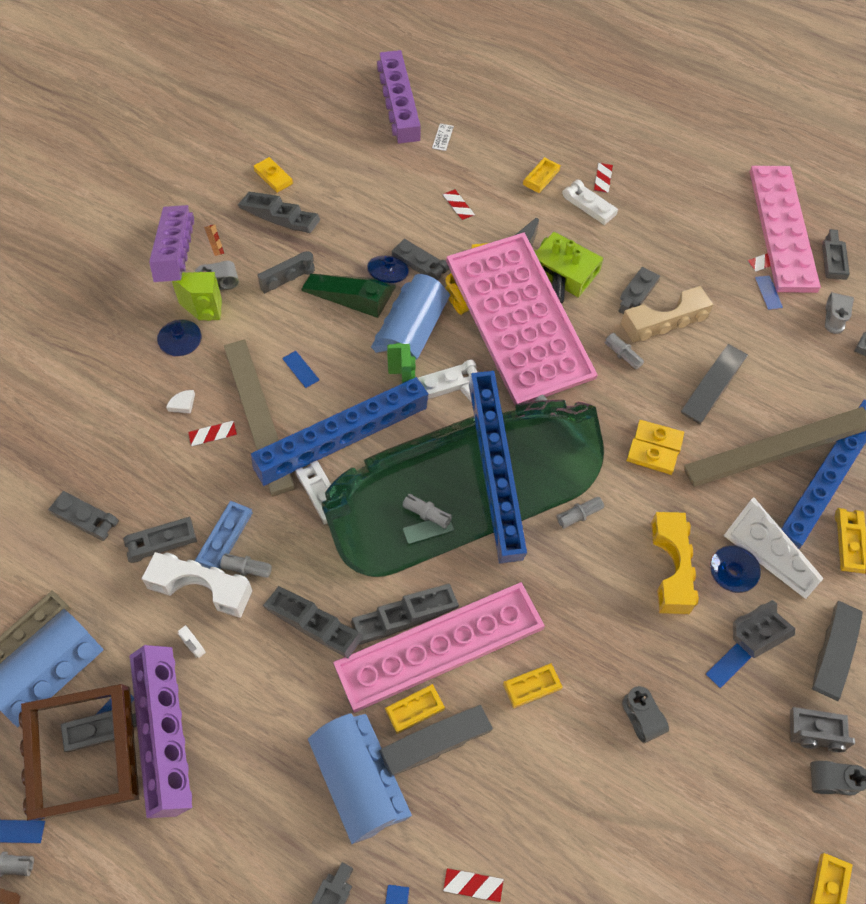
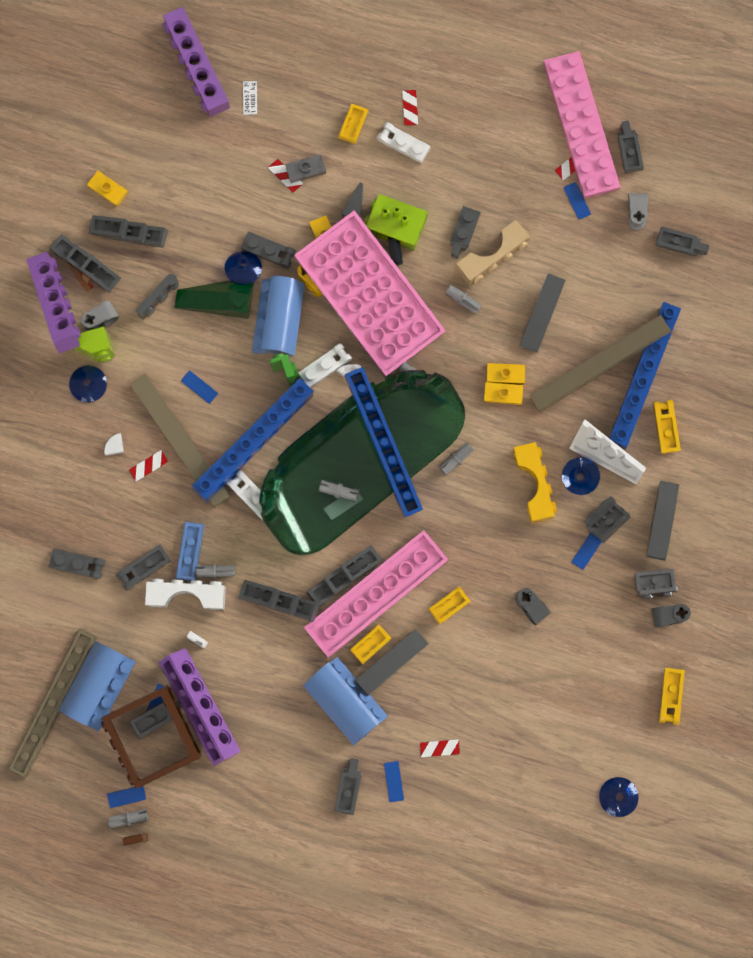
camera: 10 degrees left, 20 degrees up
(223, 228) = (85, 263): none -> dark grey slope
(481, 201) = (305, 168): none -> flat silver plate

